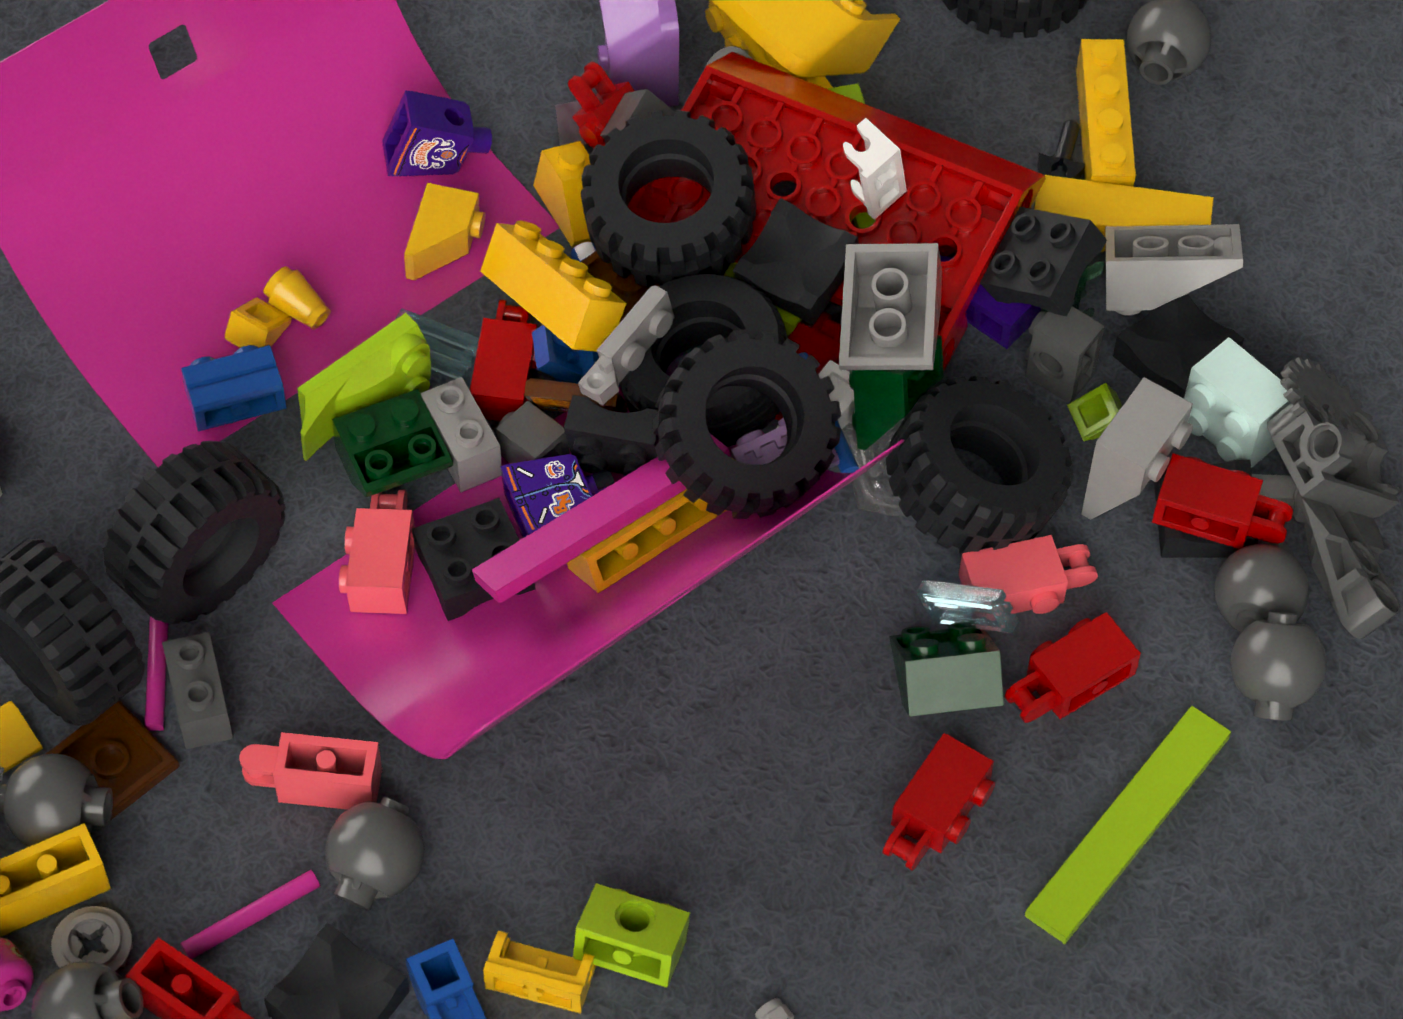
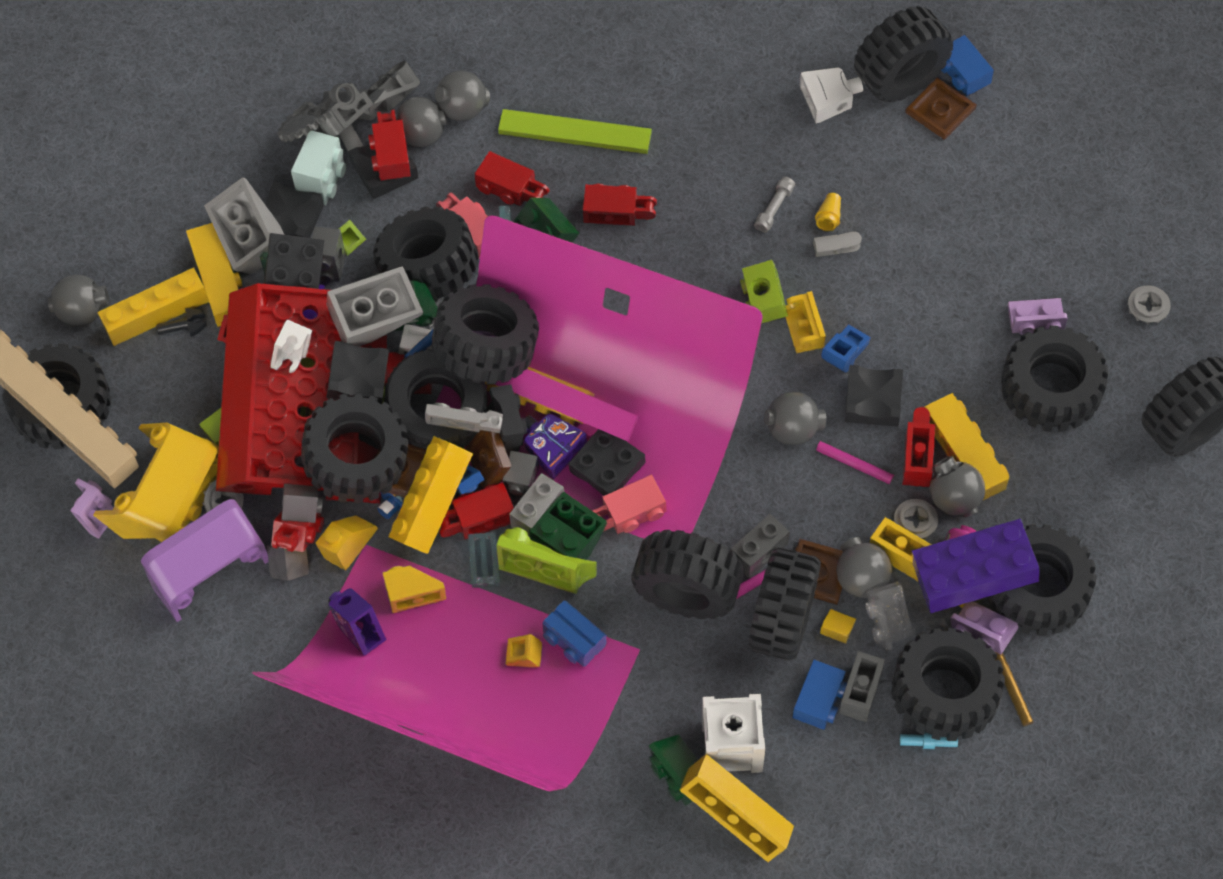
camera: 115 degrees left, 5 degrees up
(296, 297) = (497, 638): yellow cone -> none
(315, 770) = (769, 463): coral brick -> none
(1136, 446) = (382, 185): light grey slope -> none

